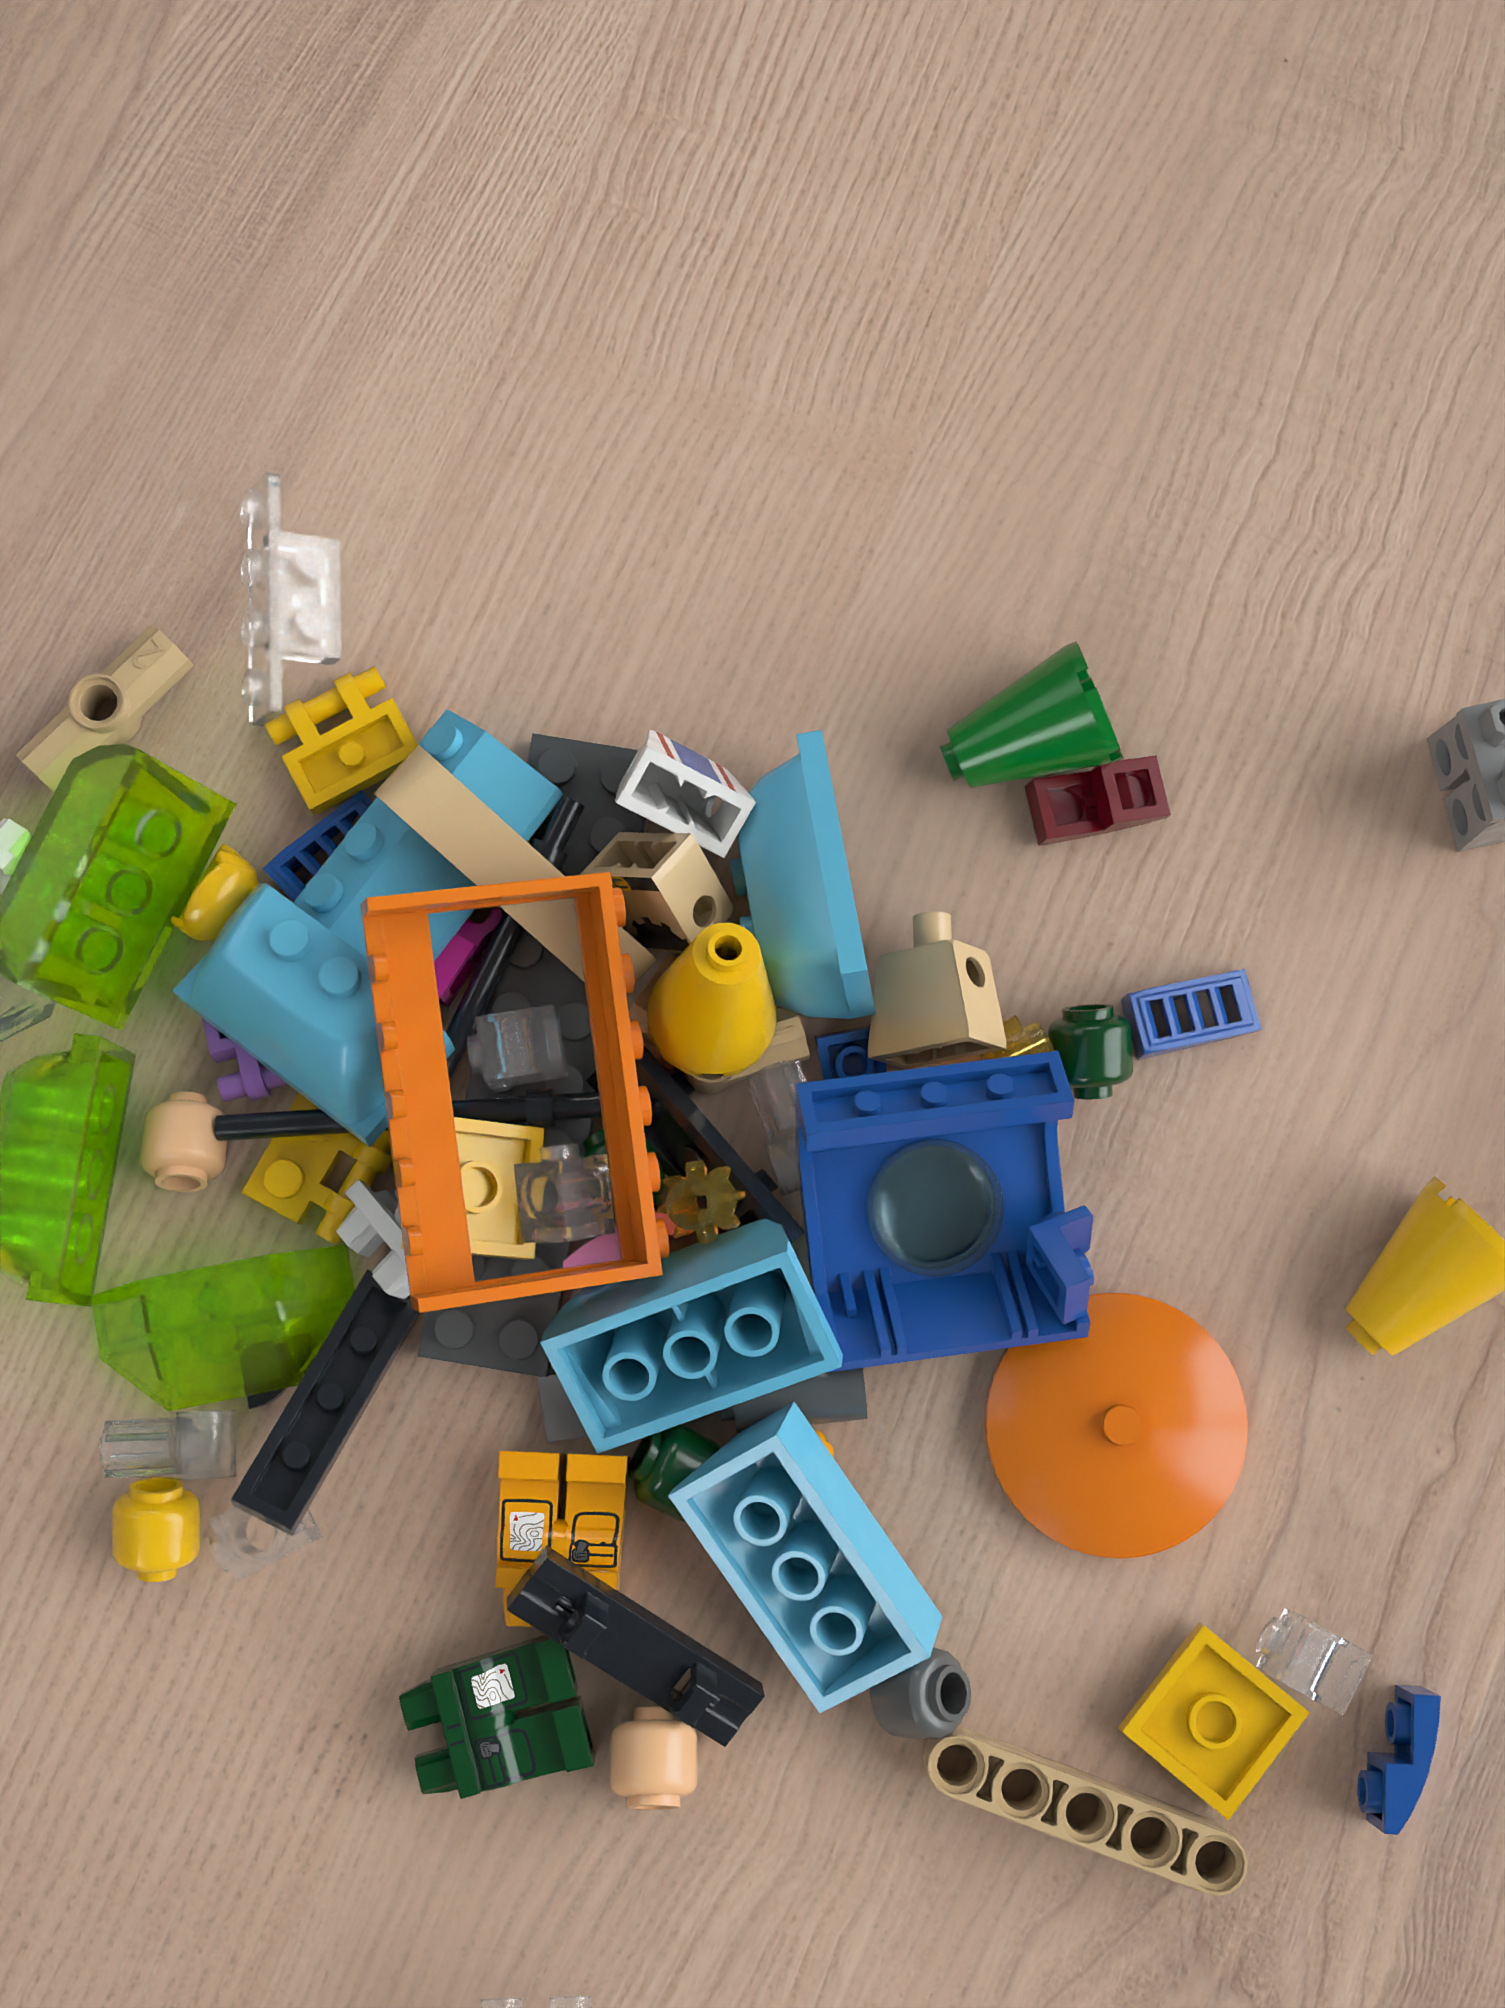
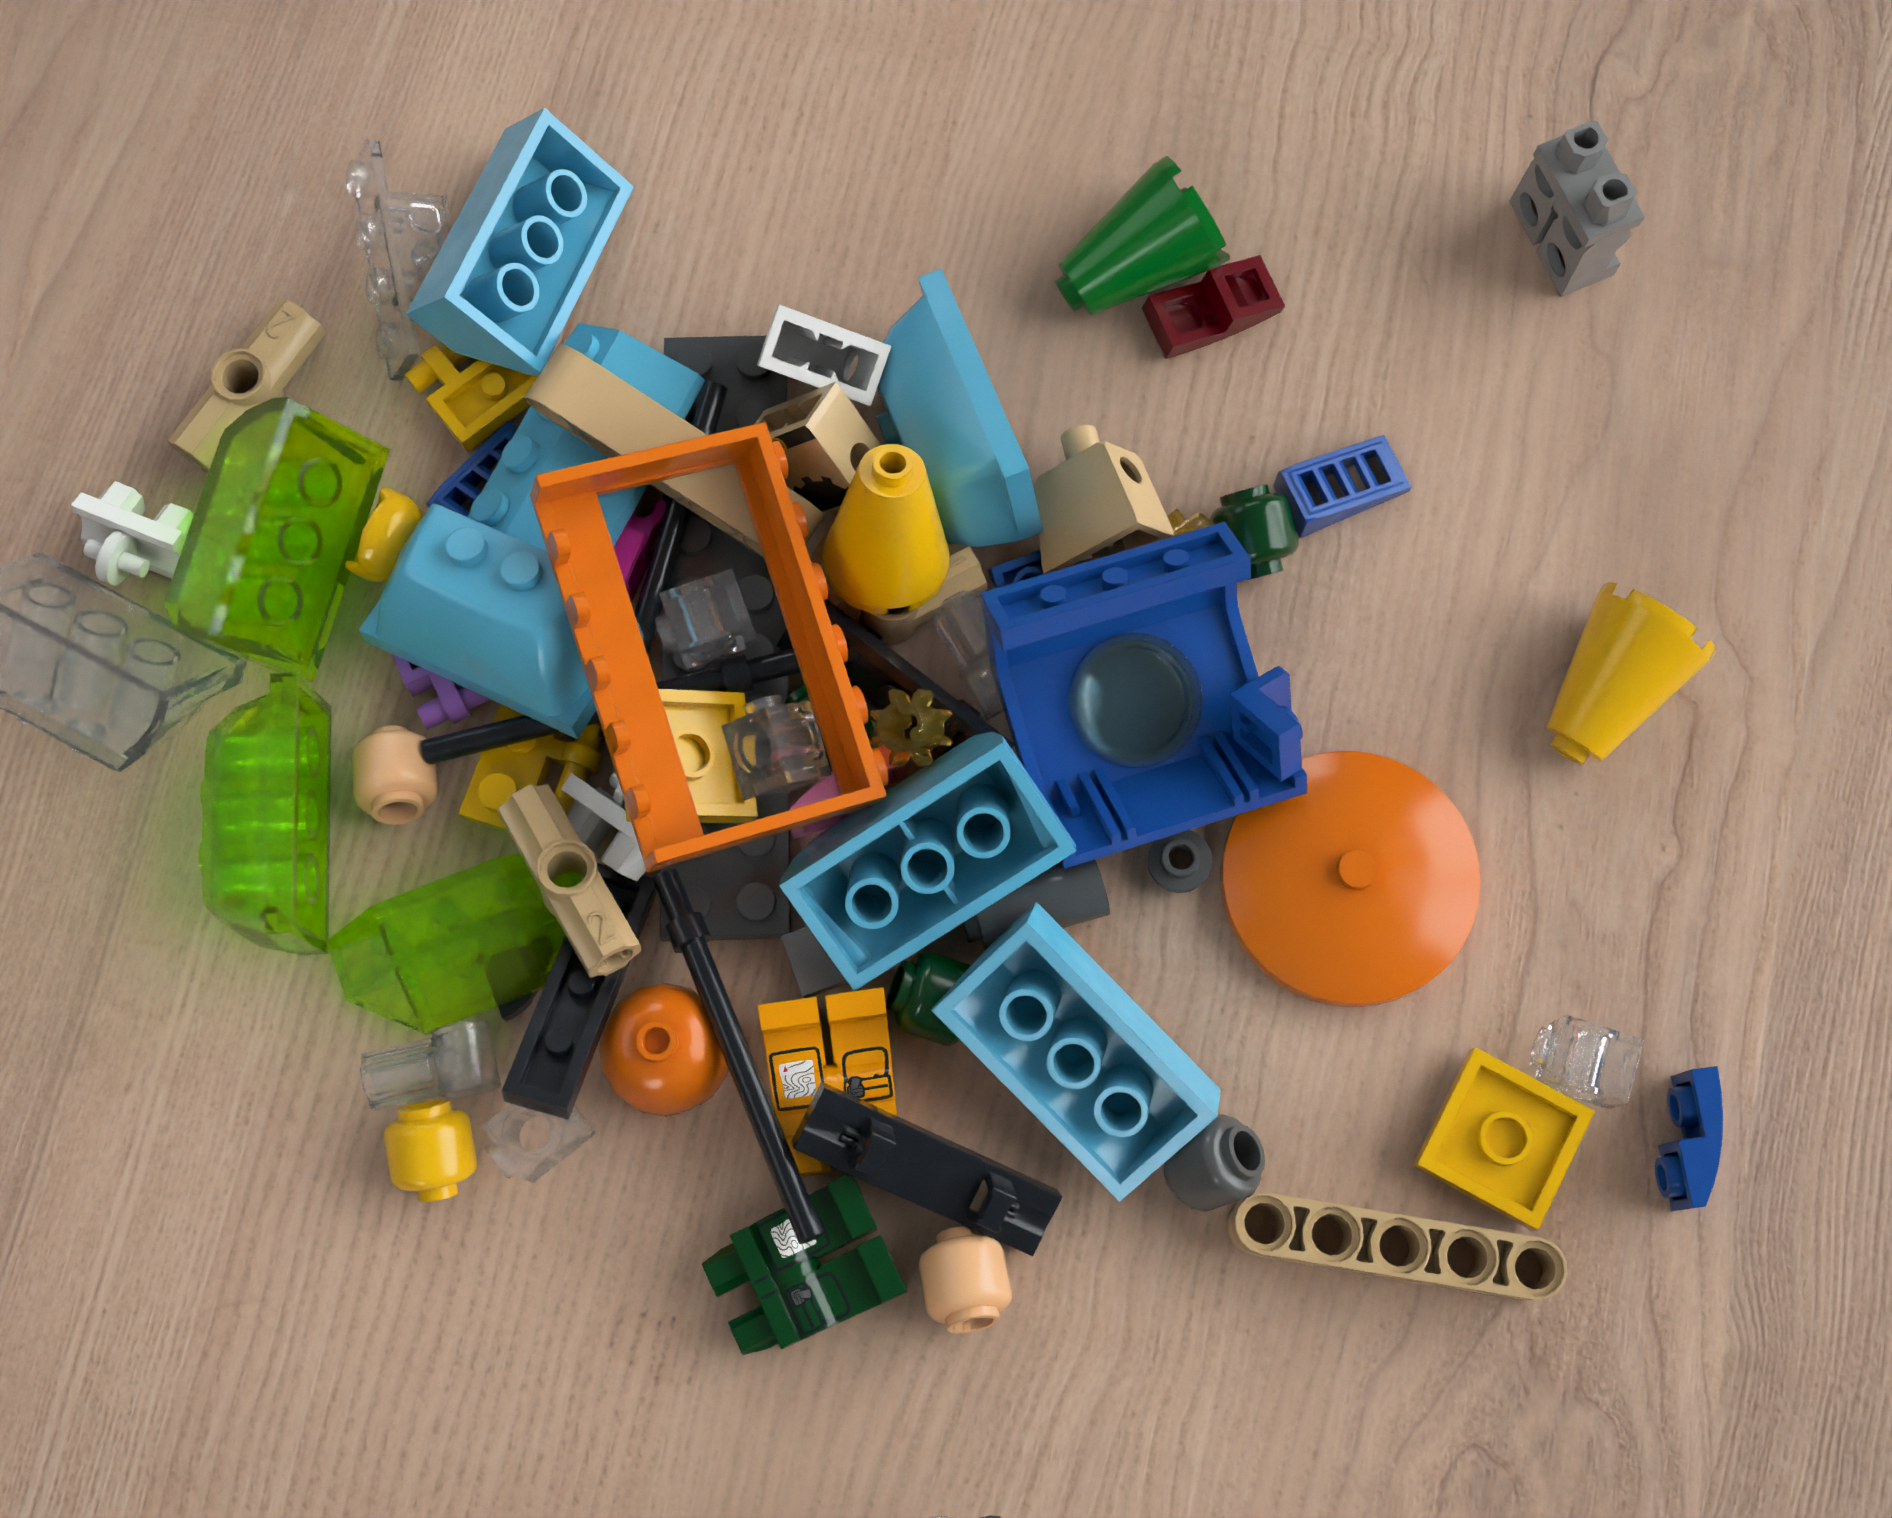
camera: 10 degrees left, 5 degrees down
(344, 1330) = (585, 910): none -> tan piece
(403, 1469) = (662, 1051): none -> orange cylinder
(404, 615) = (522, 247): none -> medium azure slope
(445, 1365) = (690, 937): none -> black bar
(948, 1397) = (1174, 879): none -> dark grey plate

